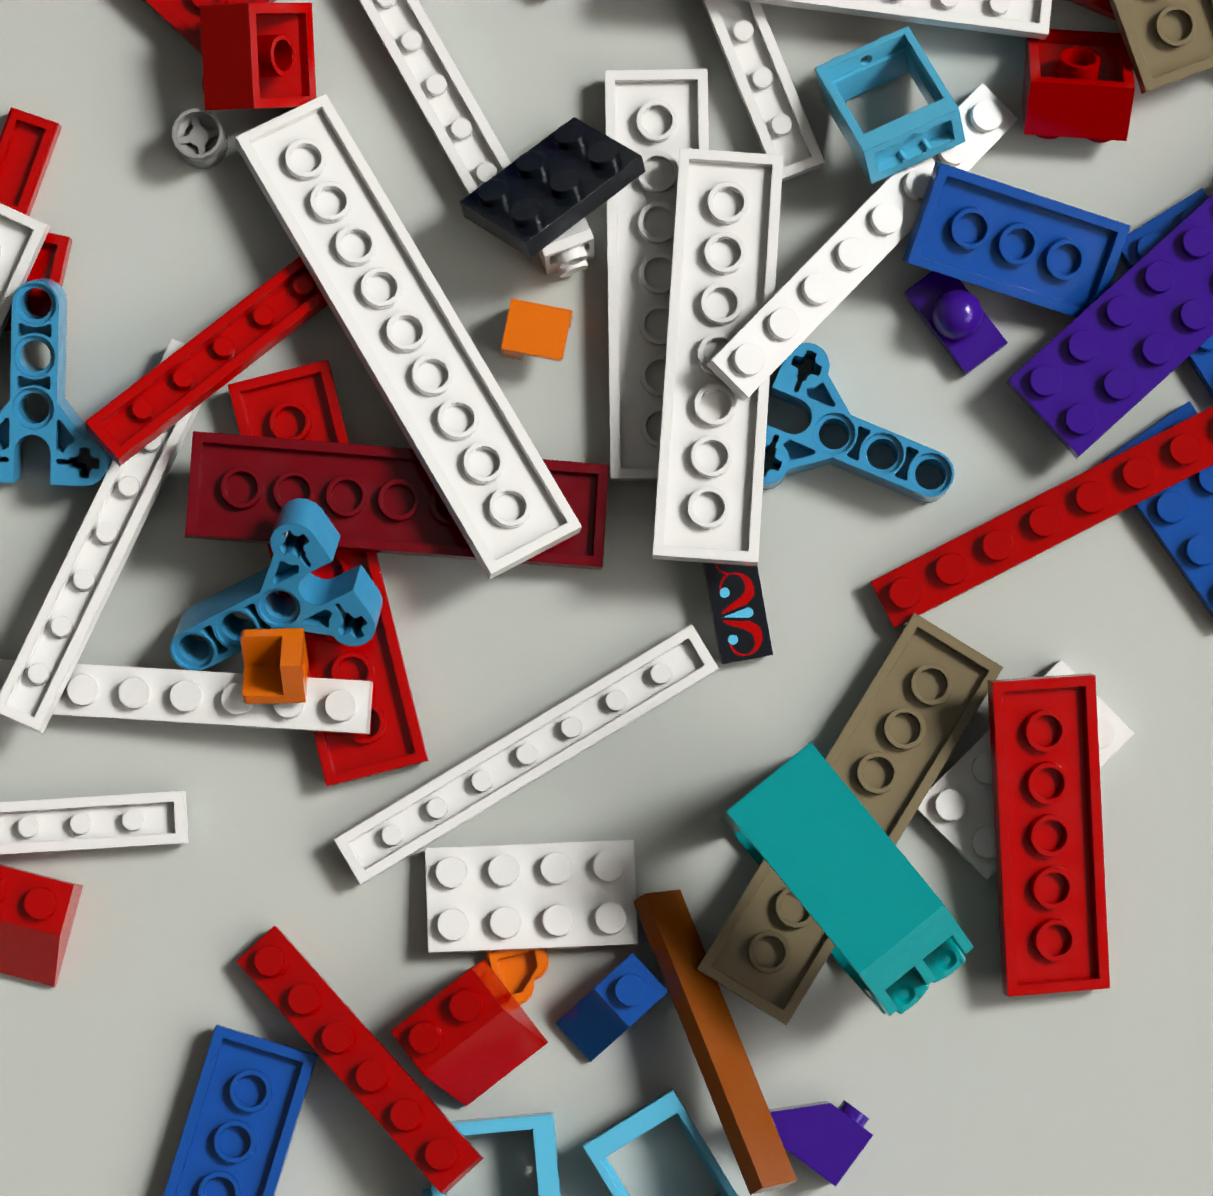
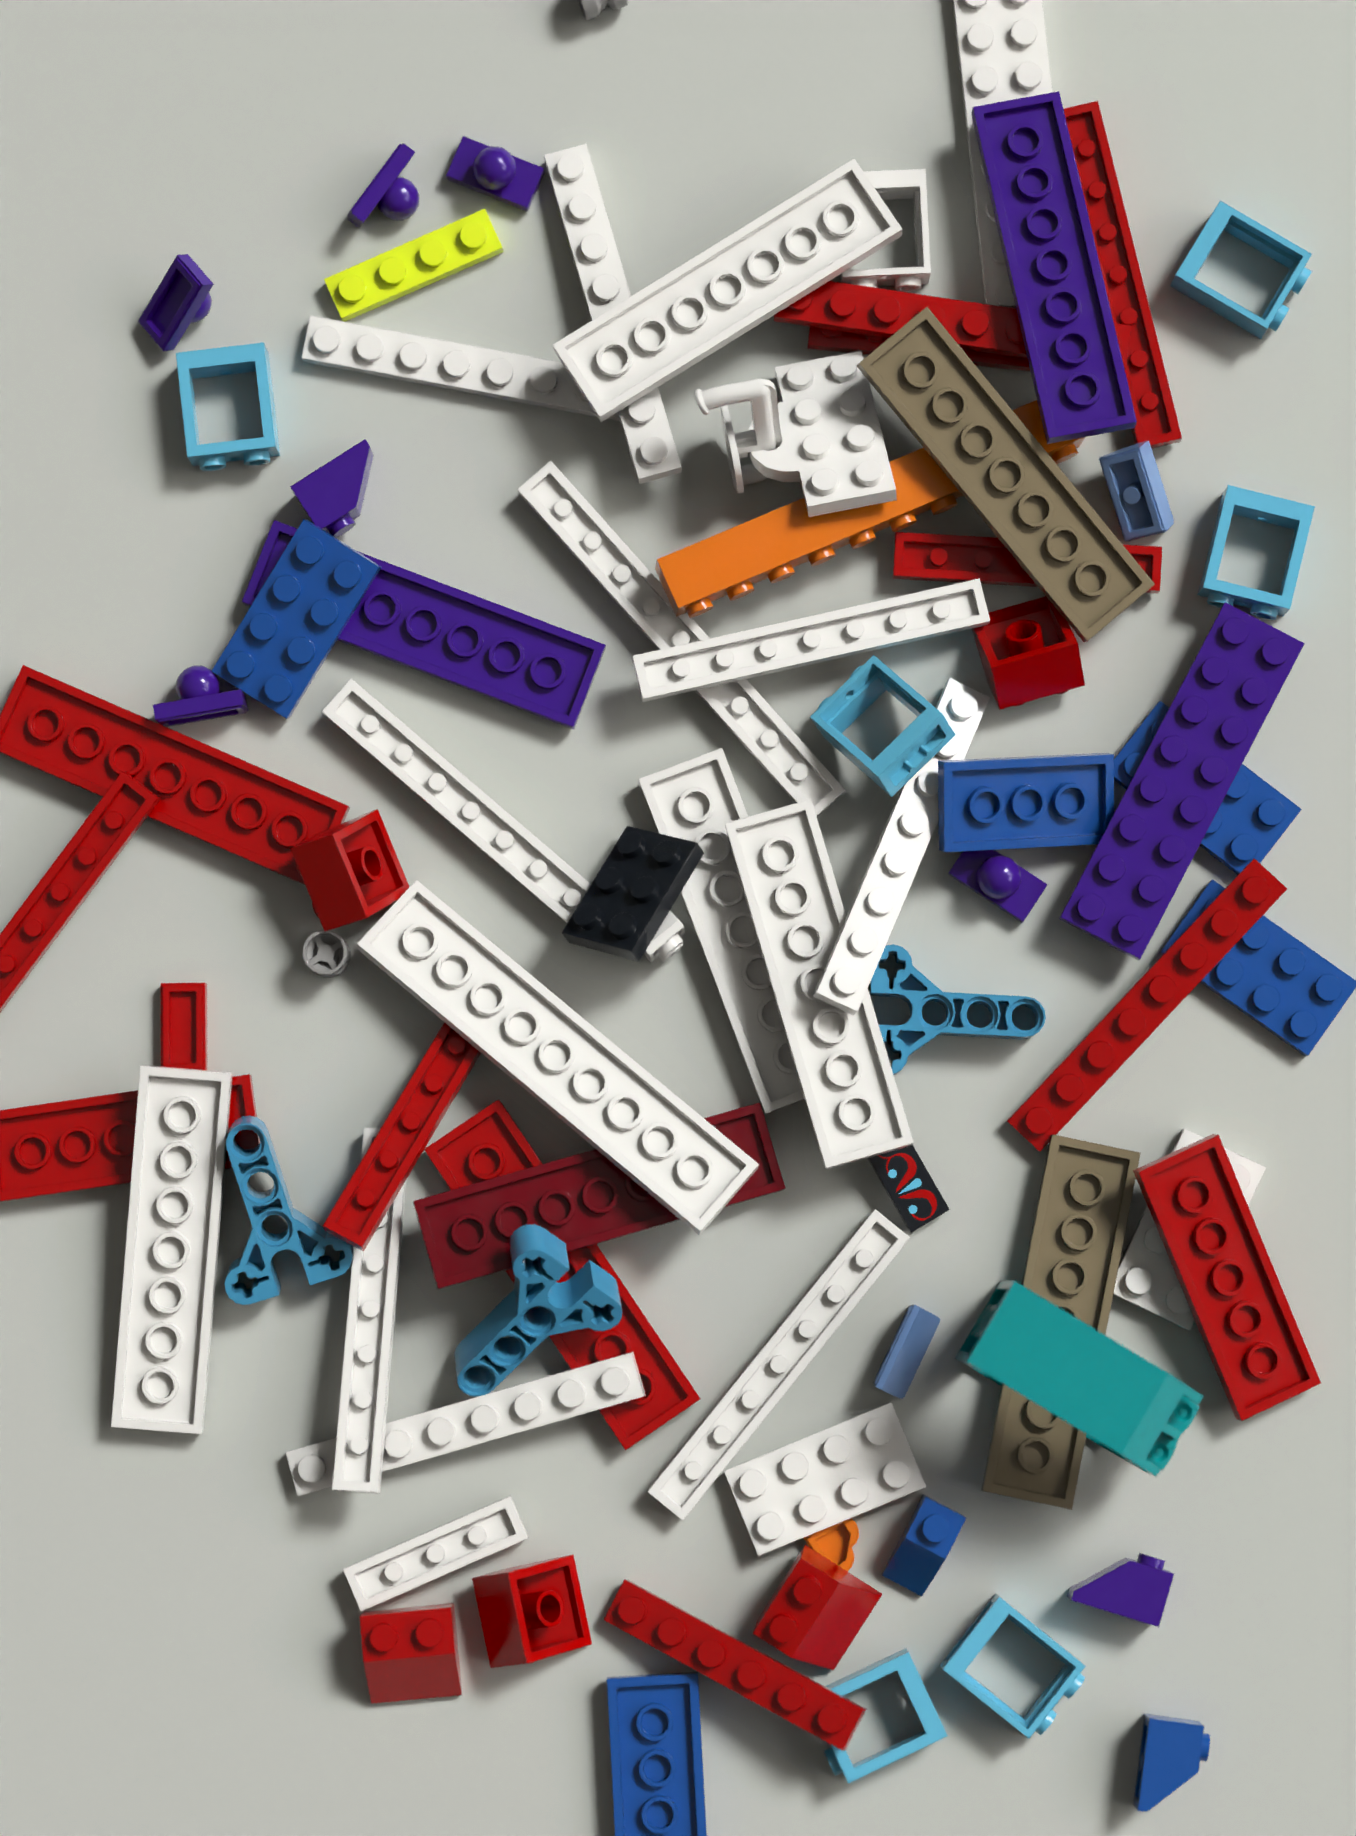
camera: 20 degrees left, 0 degrees up
(162, 923) = (531, 1611): none -> red slope
(274, 665) = (549, 1369): orange panel -> none
(535, 331) = (661, 1014): orange panel -> none
(670, 791) = (906, 1351): none -> medium blue slope
(715, 1042) = (1019, 1545): dark orange tile -> none

